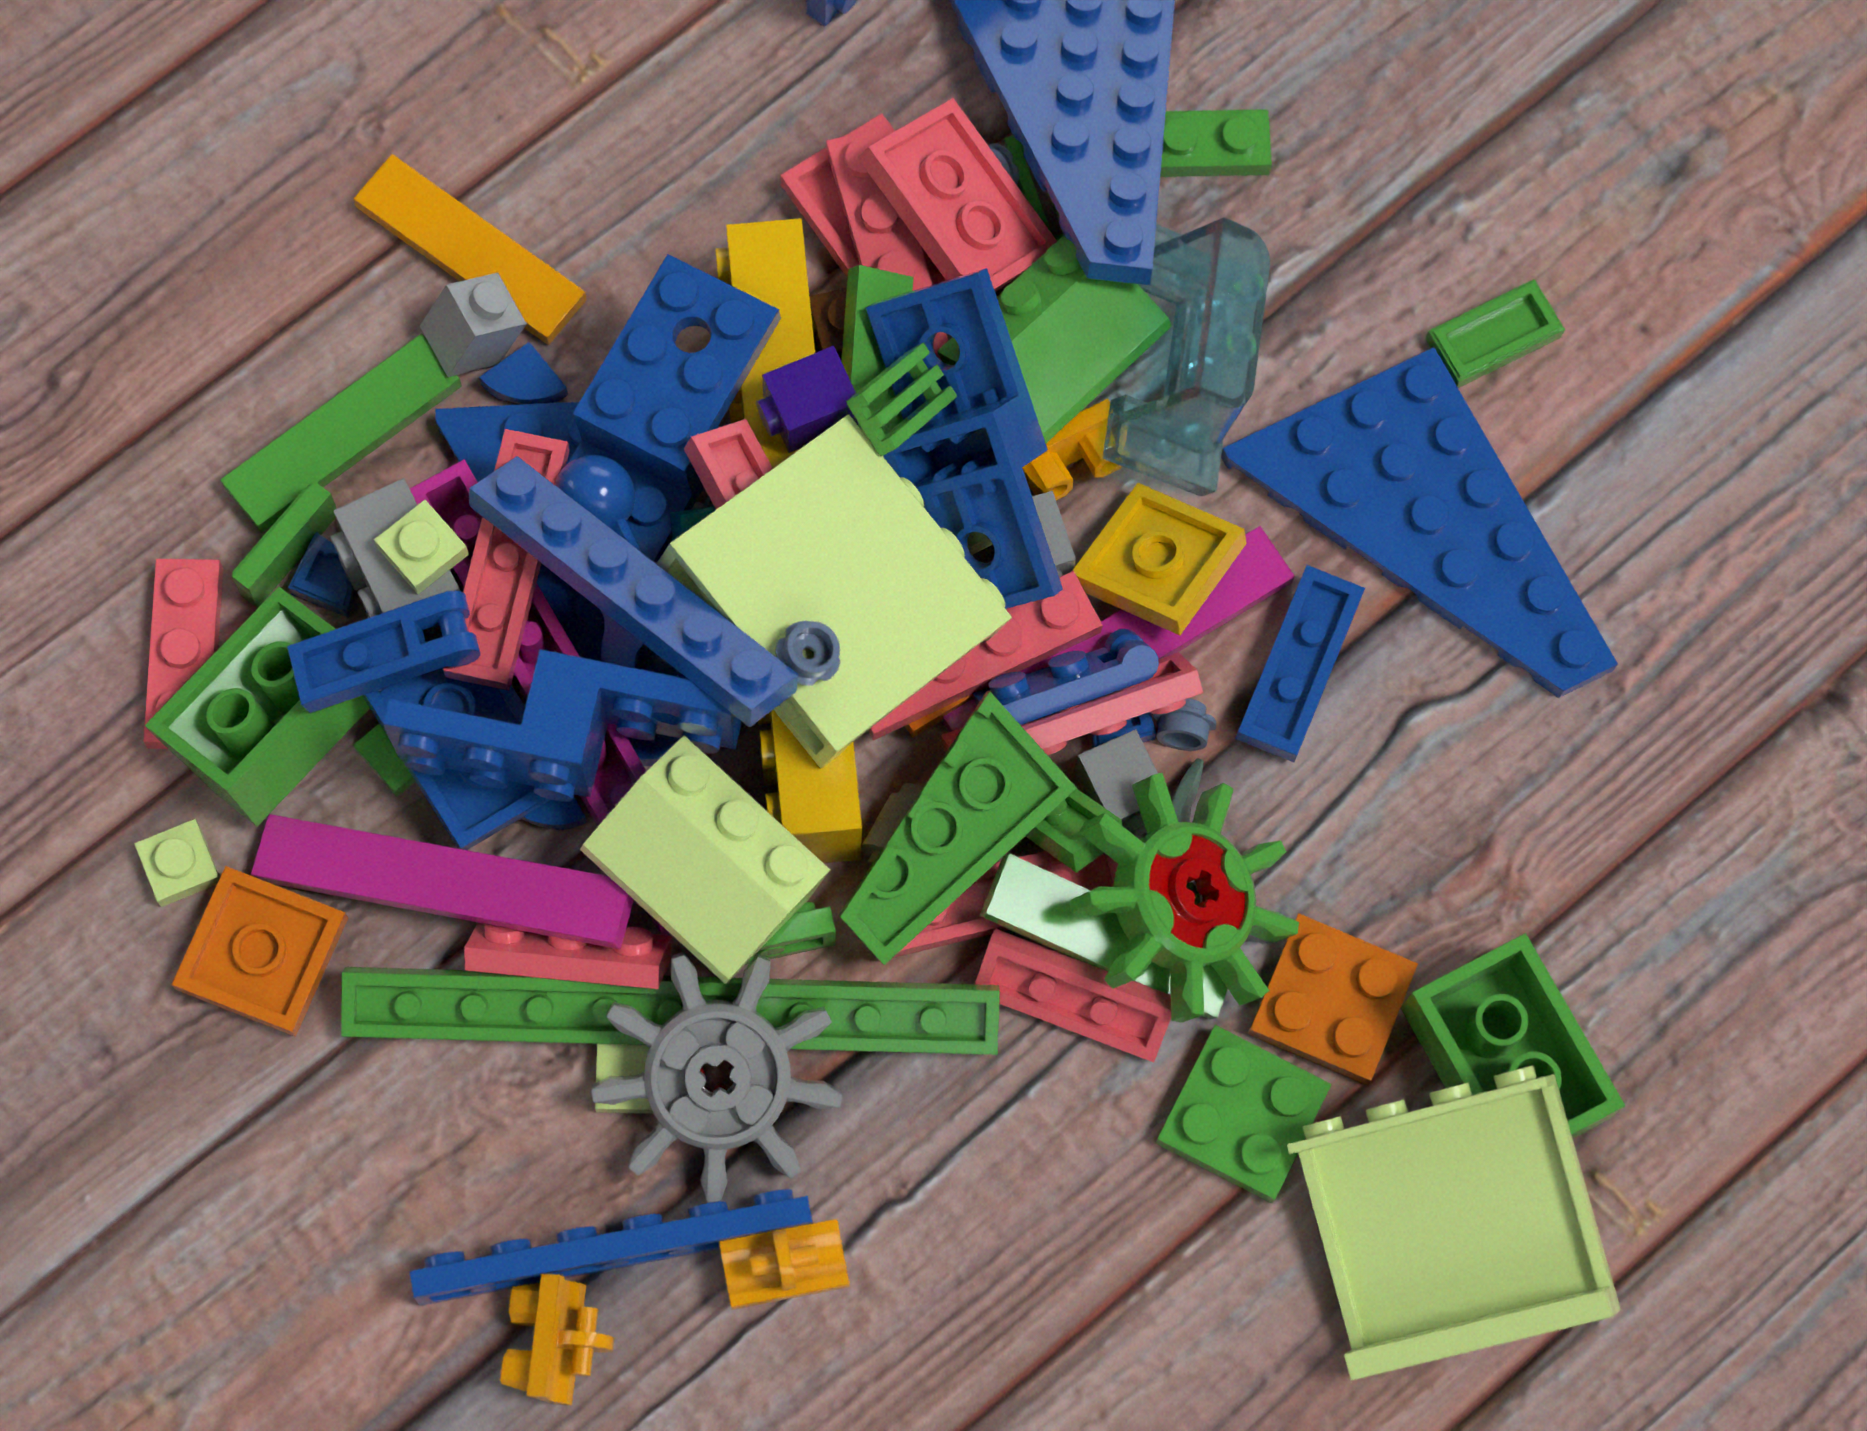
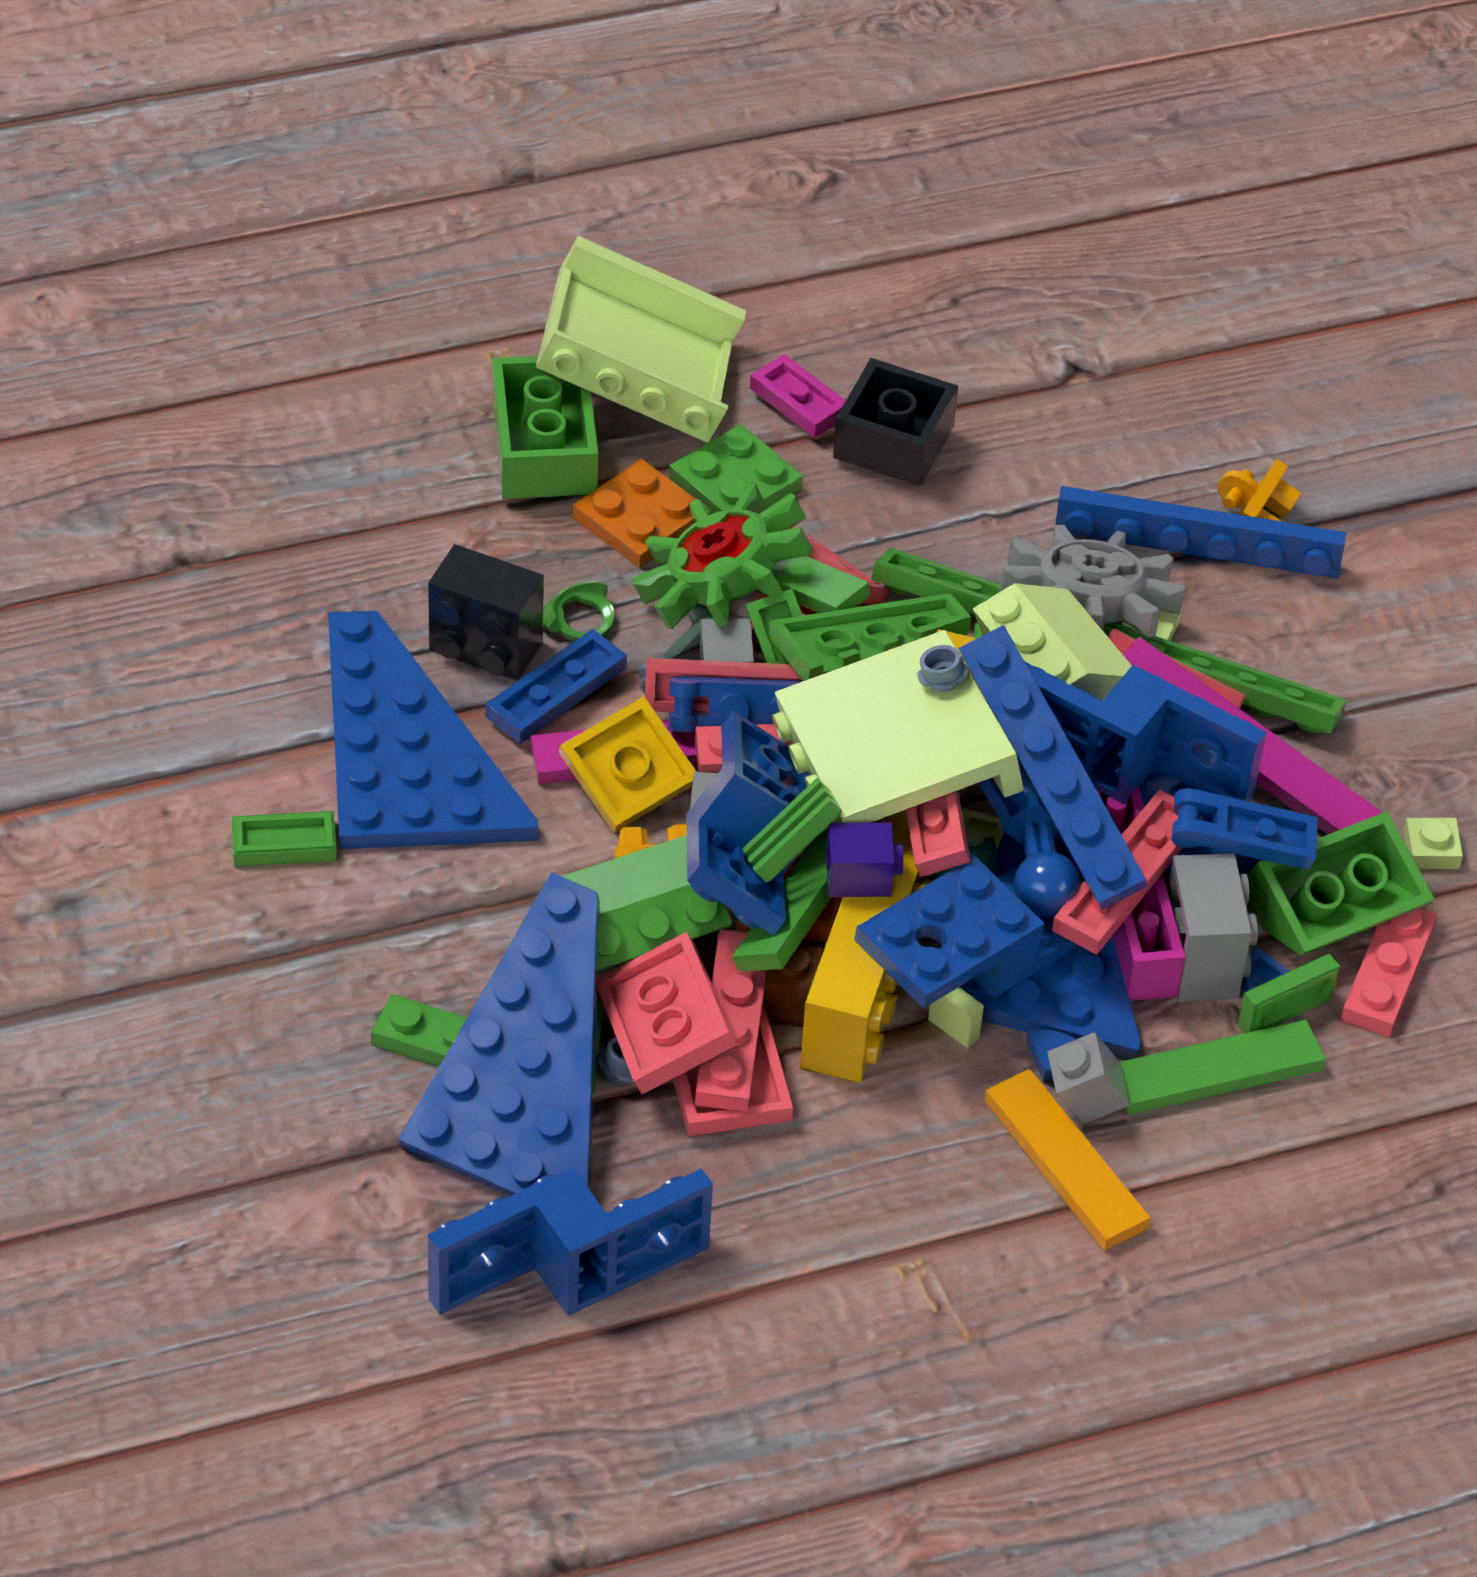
camera: 155 degrees left, 25 degrees down
(260, 951) = (1390, 765): orange plate -> none
(421, 547) = (1193, 879): yellowish green plate -> none
(784, 1264) = (1084, 475): light orange hips -> none
(1073, 1261) = (895, 421): none -> black brick
(1220, 296) = (526, 831): clear light blue windscreen -> none
(1223, 1285) = (797, 395): none -> dark pink plate
(1336, 835) = (586, 592): none -> bright green piece
(1428, 696) = (485, 612): none -> black brick

